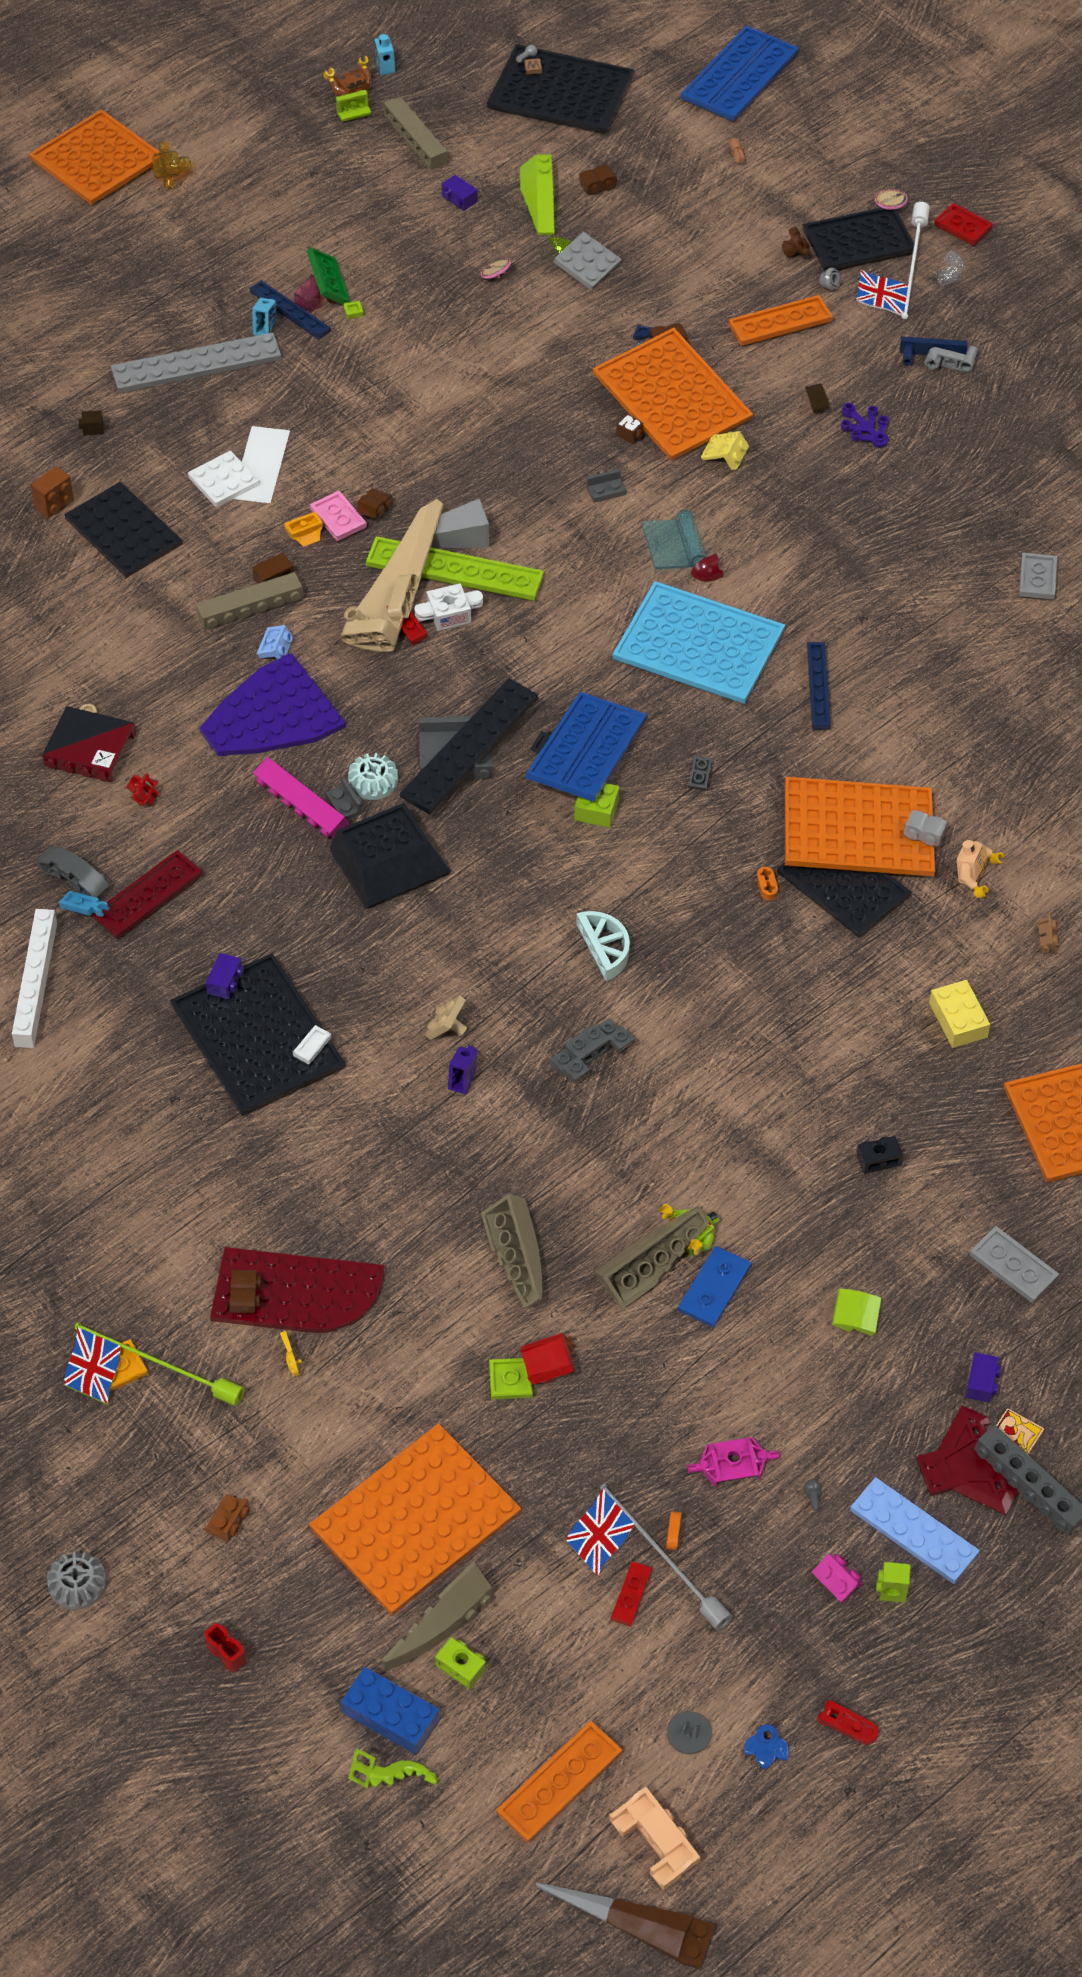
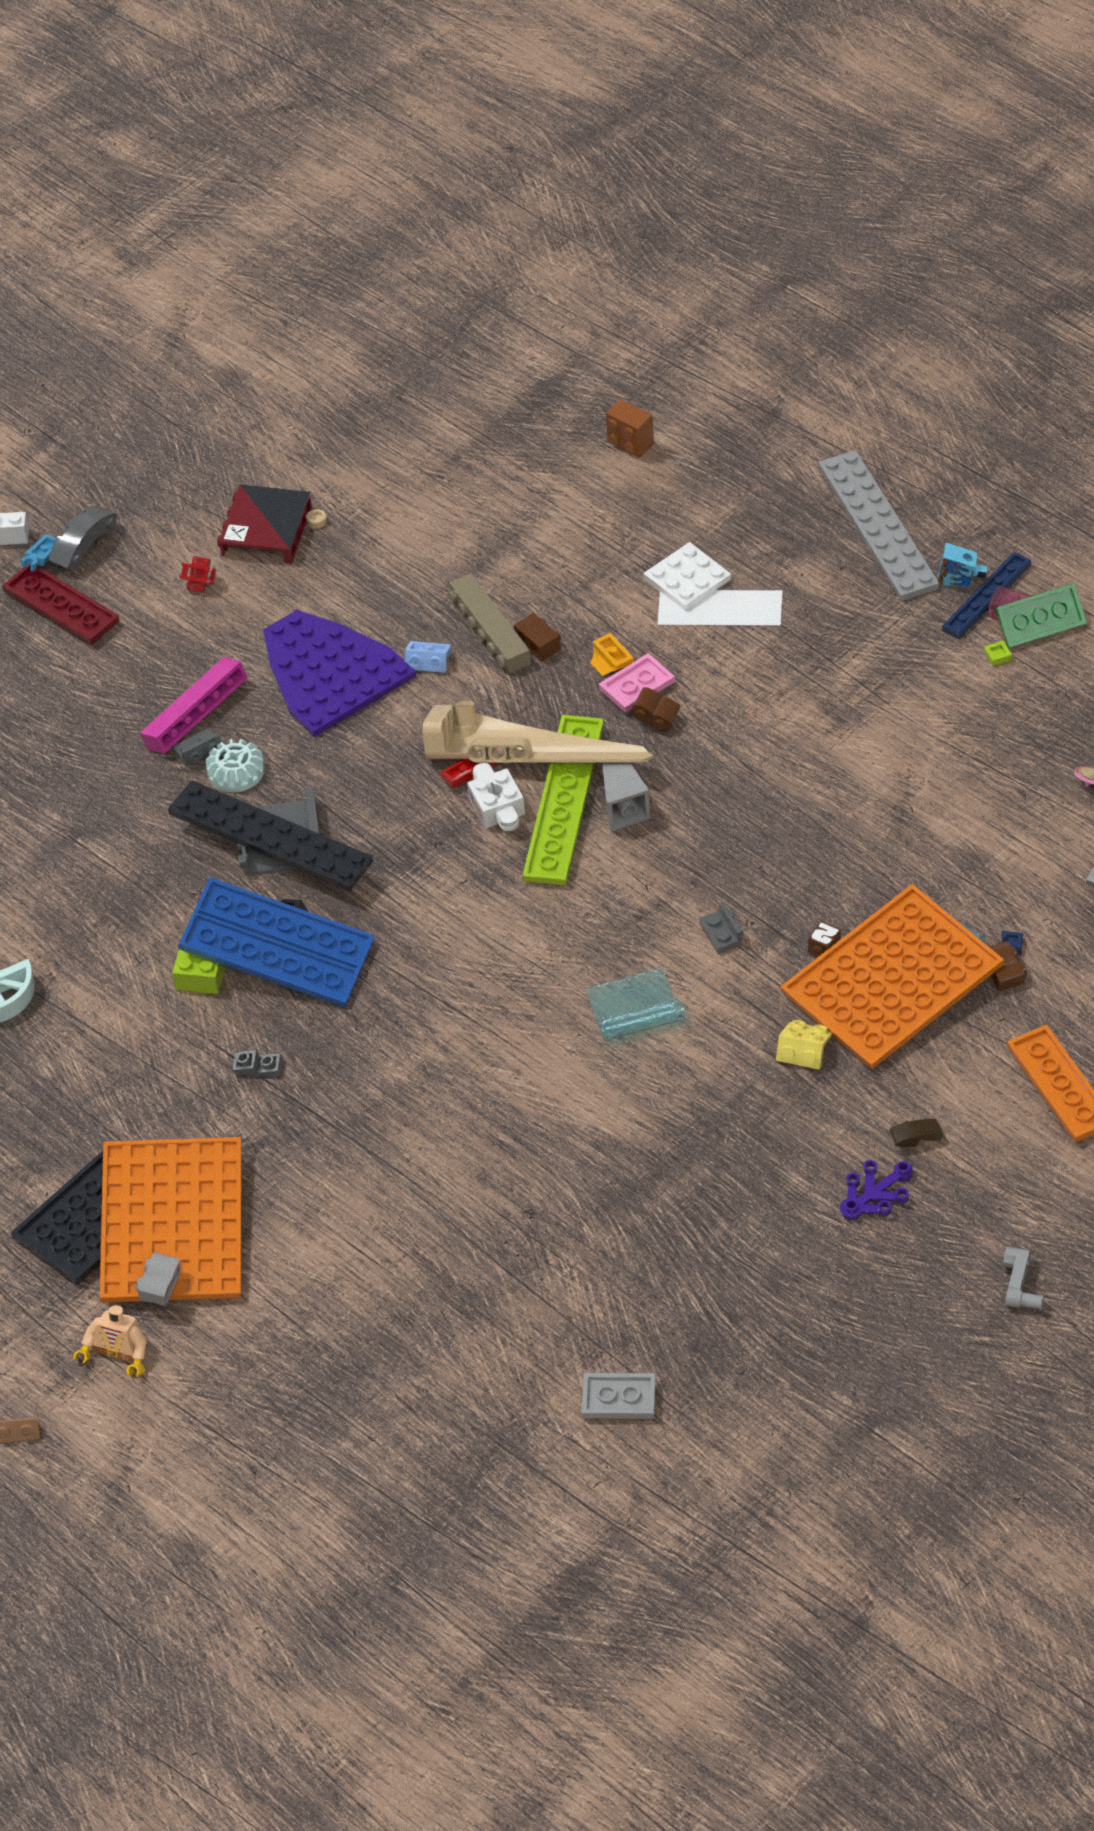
camera: 90 degrees right, 5 degrees down
(91, 422) = (755, 448): dark brown brick -> none
(123, 529) = (595, 504): black plate -> none
(386, 855) = (115, 792): black piece -> none
(699, 642) = (466, 1044): medium azure plate -> none
(707, 569) = (591, 1045): dark red brick -> none
(763, 884) = (90, 1141): orange beam -> none
(818, 685) = (404, 1168): dark blue plate -> none
(921, 346) = (1033, 1228): dark blue piece -> none

